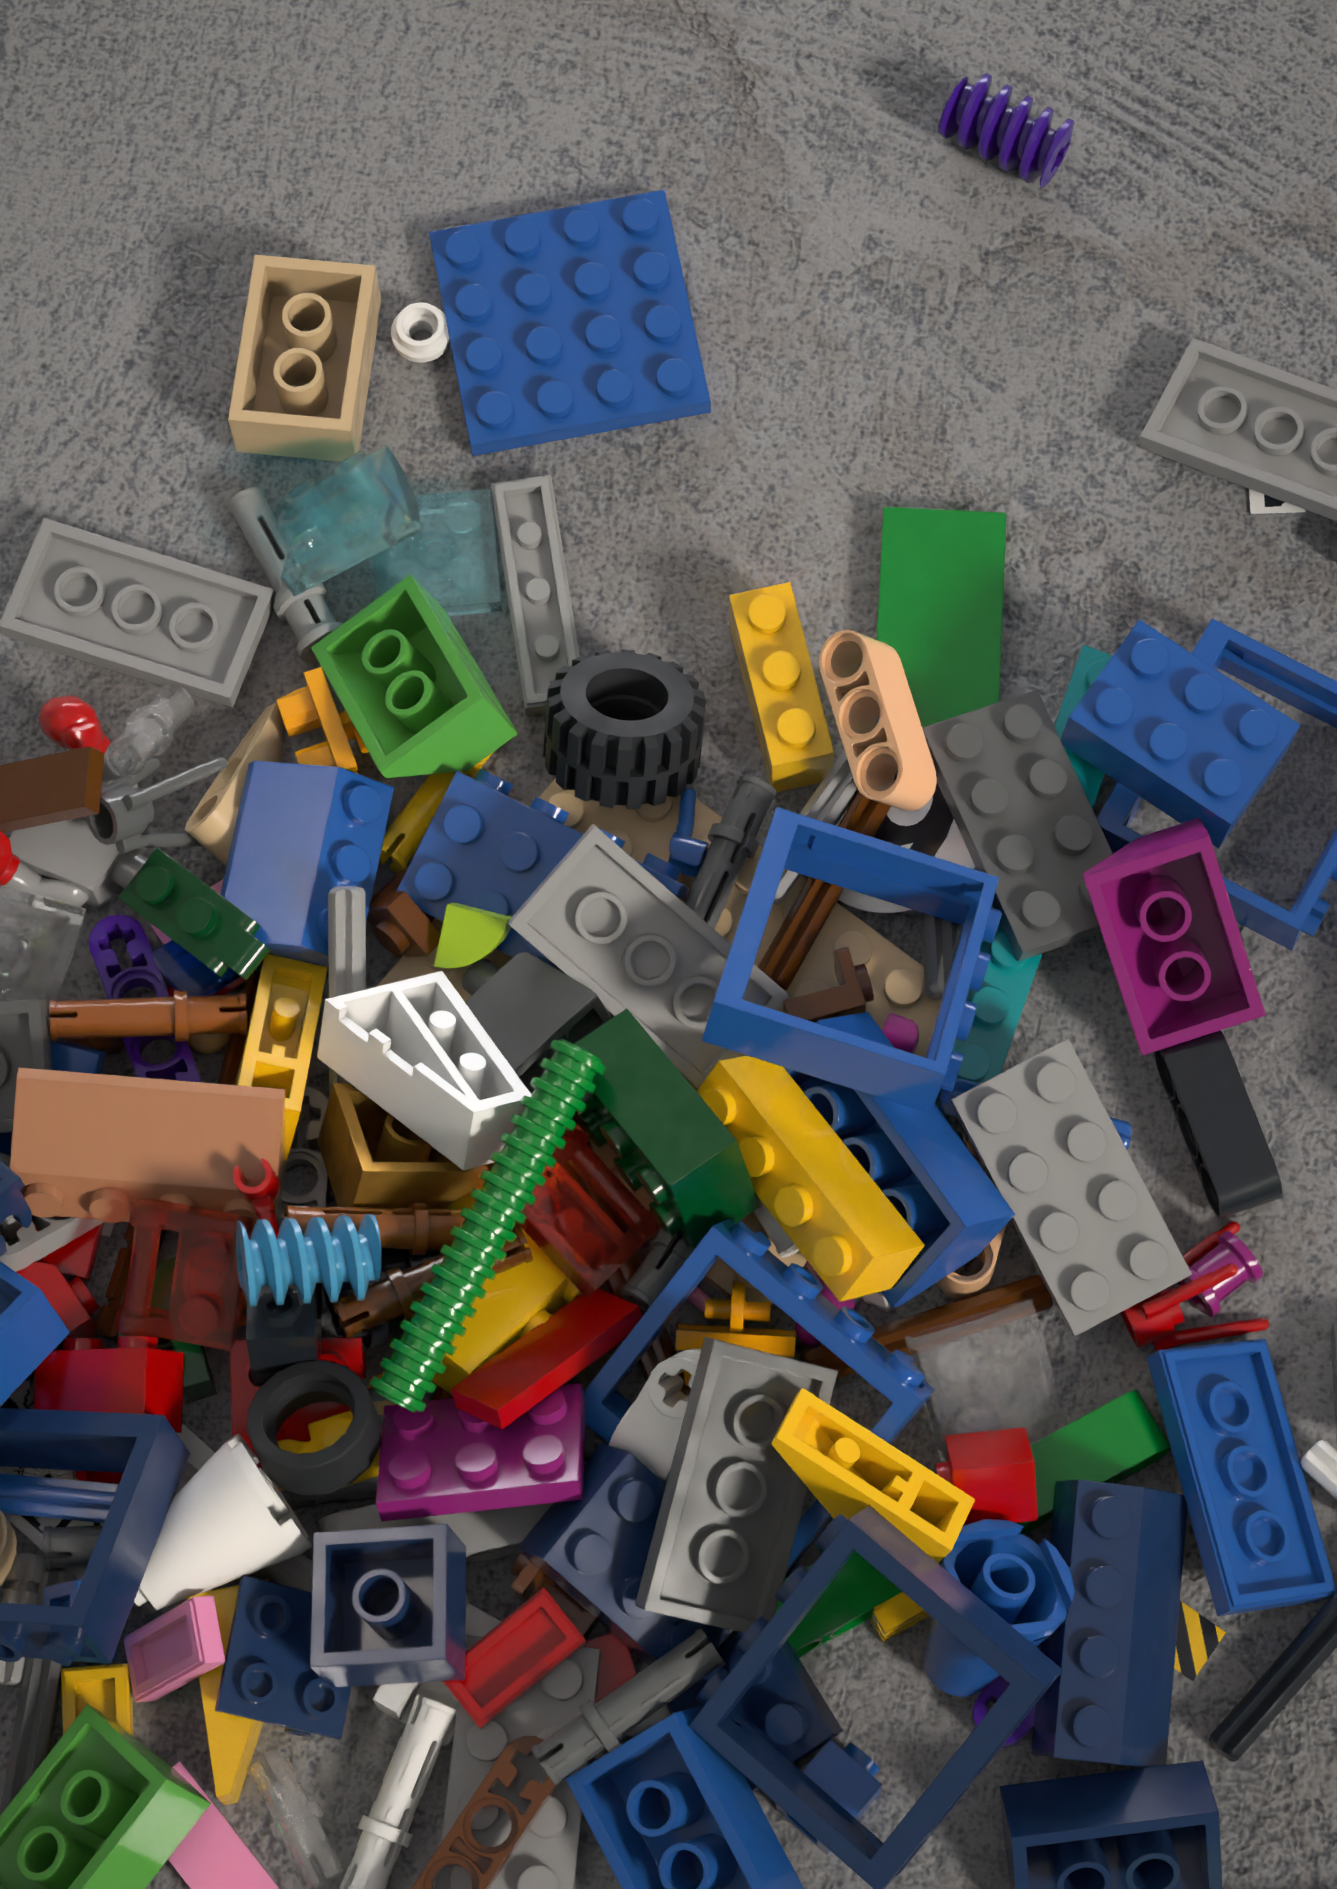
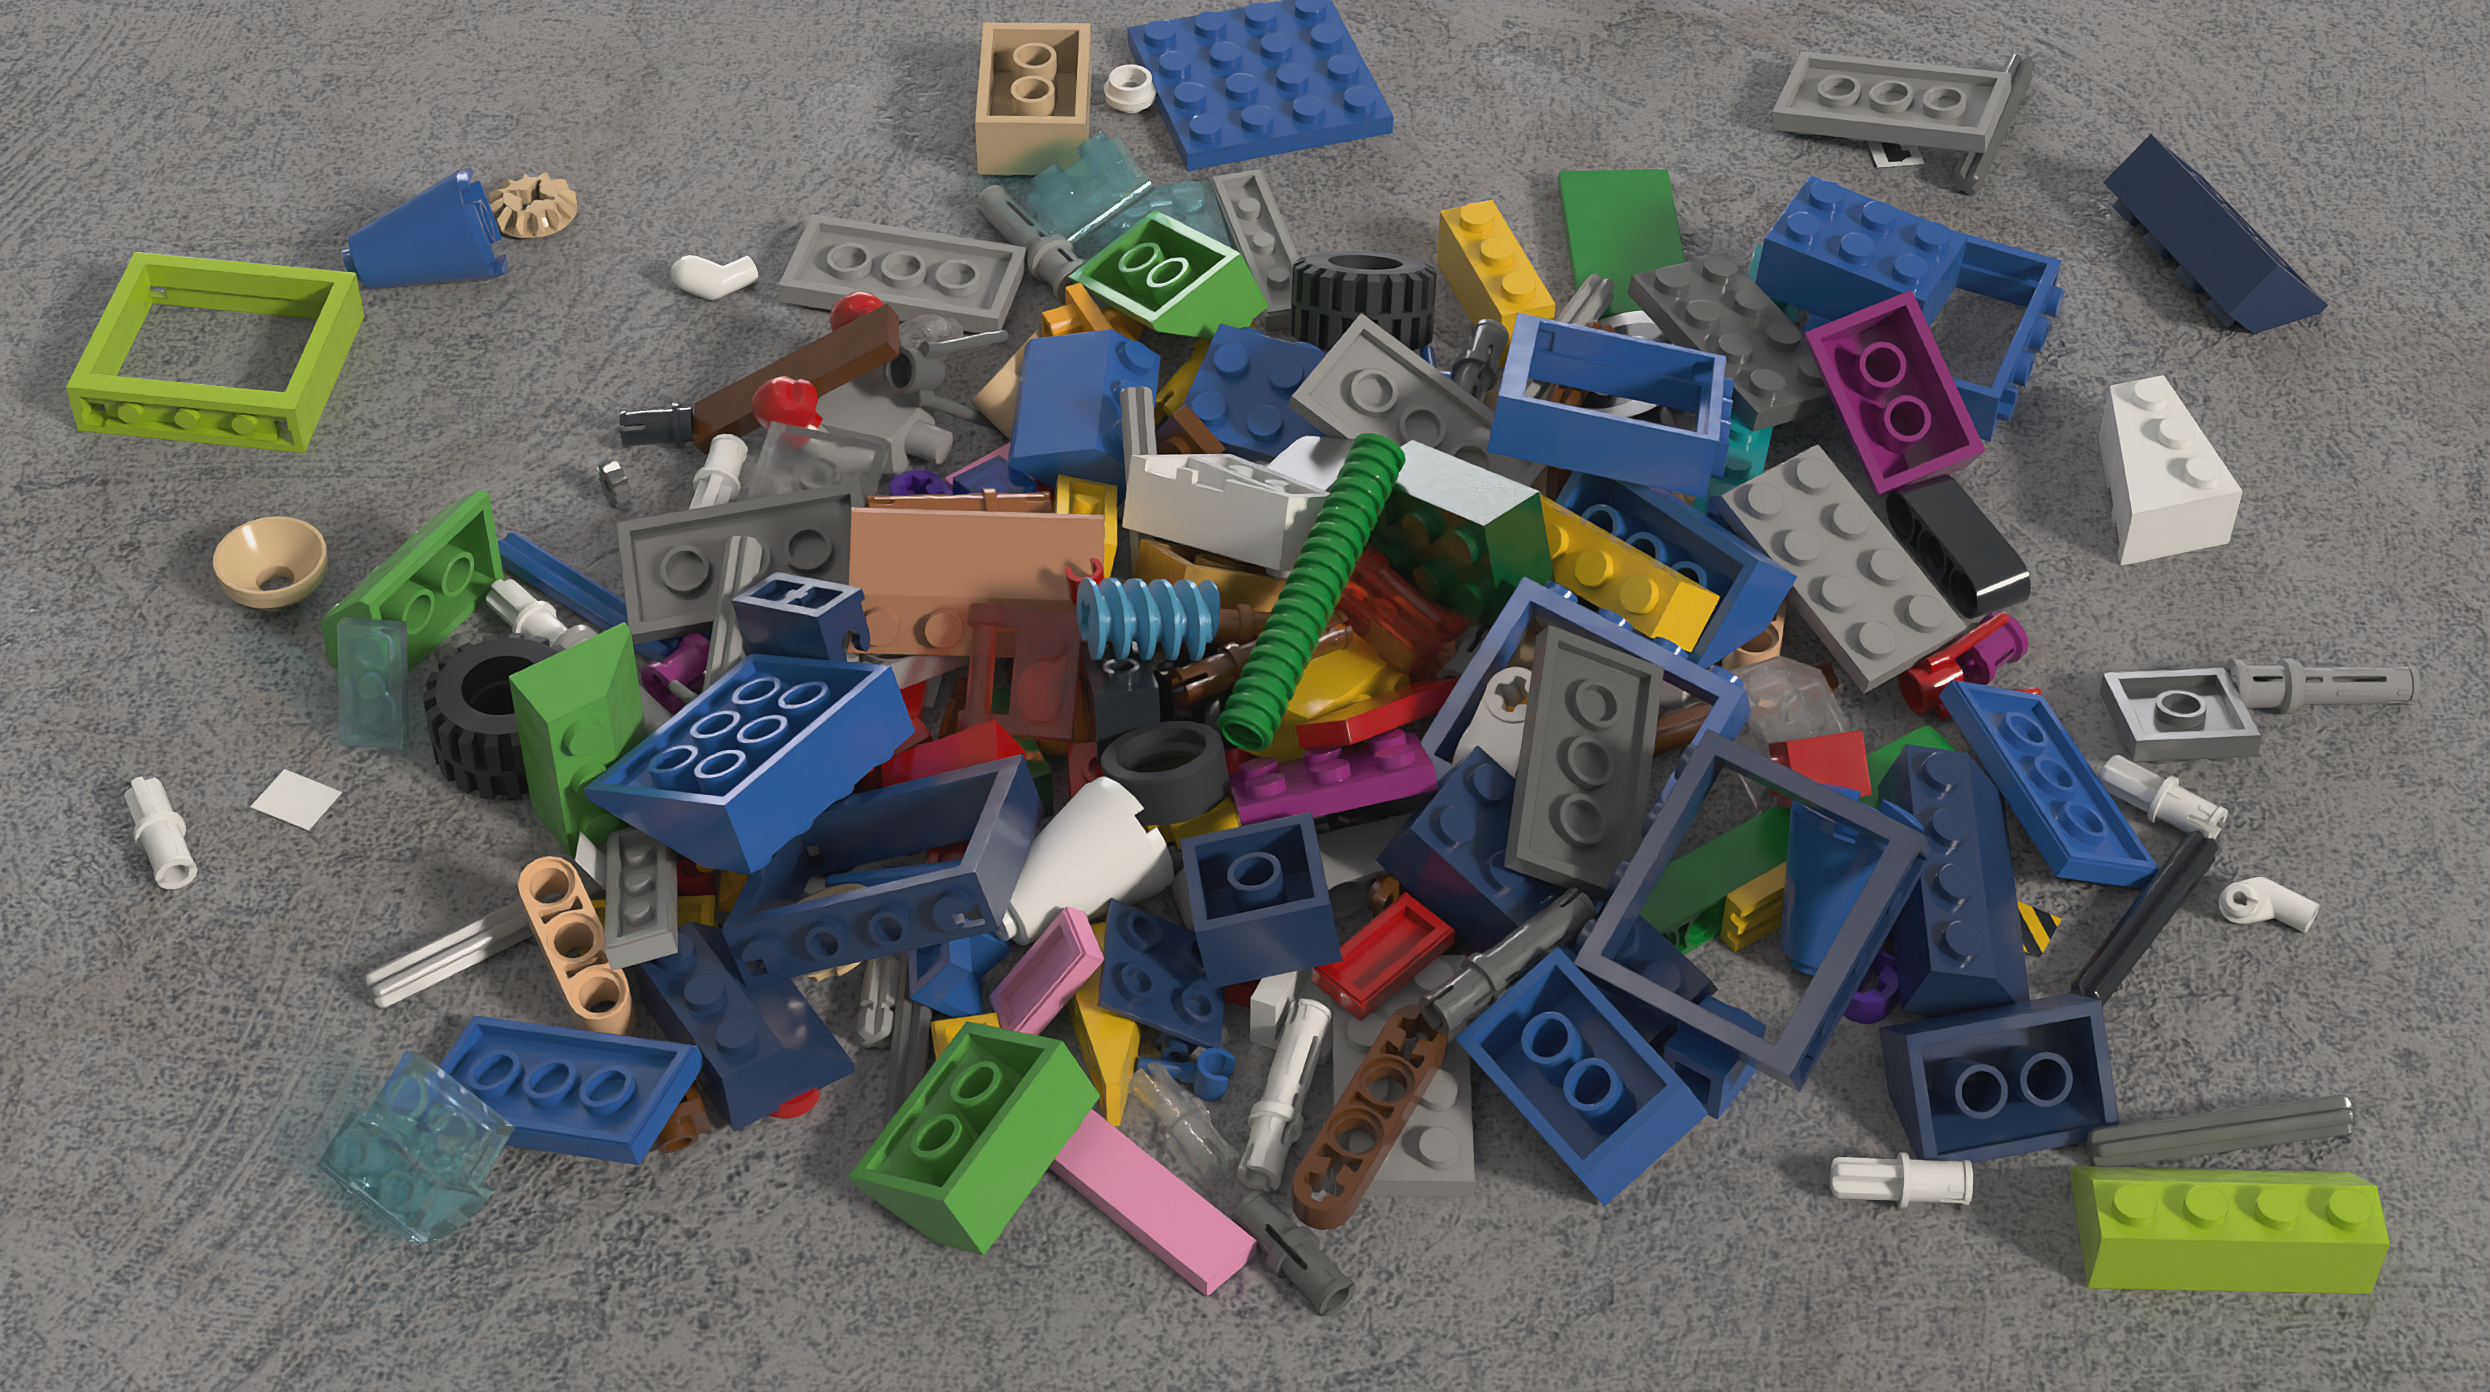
camera: 10 degrees left, 25 degrees down
(195, 916) = (992, 441): dark green hinge -> none
(307, 1750) = (1207, 1075): none -> blue hand
(469, 935) = (1253, 432): lime tile -> none
(856, 1469) = (1677, 720): yellow slope -> none
(897, 739) = (1592, 268): light nougat beam -> none

